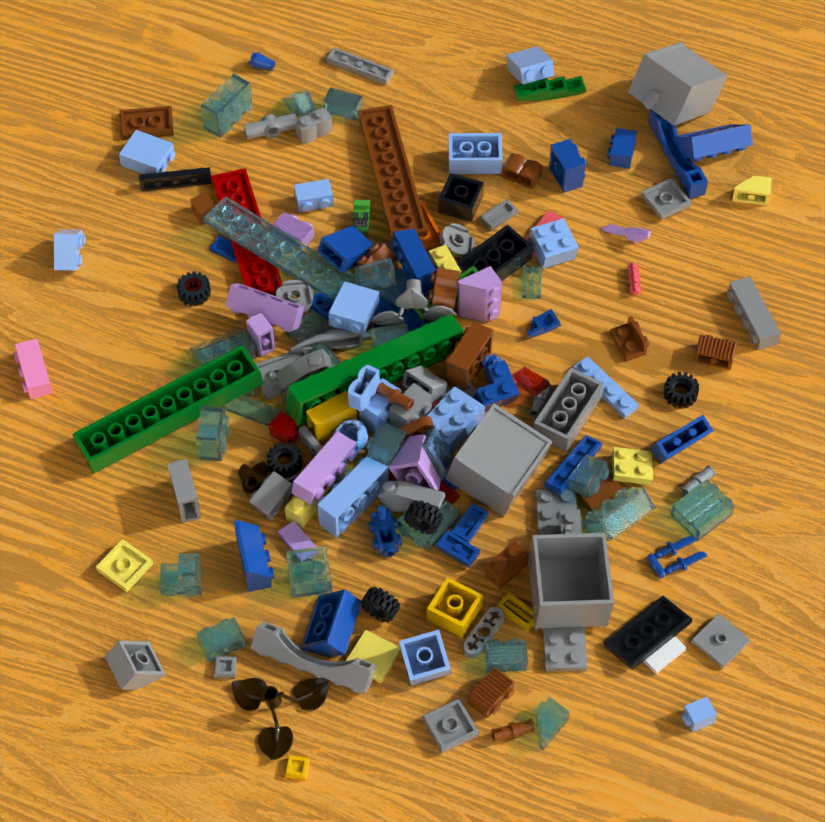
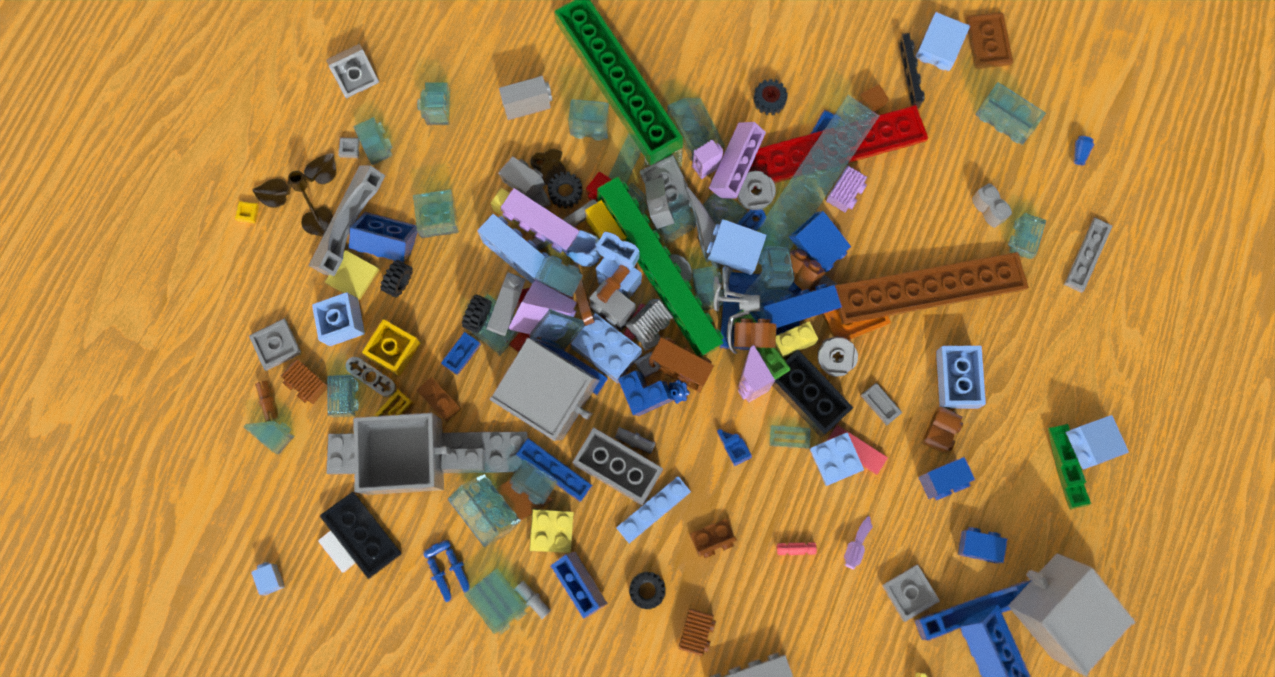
camera: 90 degrees right, 20 degrees up
(124, 565) = (454, 55): light yellow plate -> none
(253, 556) = (454, 162): blue slope -> none
(270, 126) = (990, 161): light grey piece -> none
(295, 537) = (476, 206): lavender tile -> none
(300, 103) = (1023, 190): clear light blue slope -> none
(313, 195) = (895, 208): light blue brick -> none
(362, 215) = (867, 258): bright green leg -> none
(384, 527) = (484, 283): blue brick -> none
(460, 197) = (897, 360): black brick -> none
(470, 522) = (488, 365): blue plate -> none
(530, 381) = (656, 429): clear red tile -> none
(720, 641) = (349, 608): light grey plate -> none

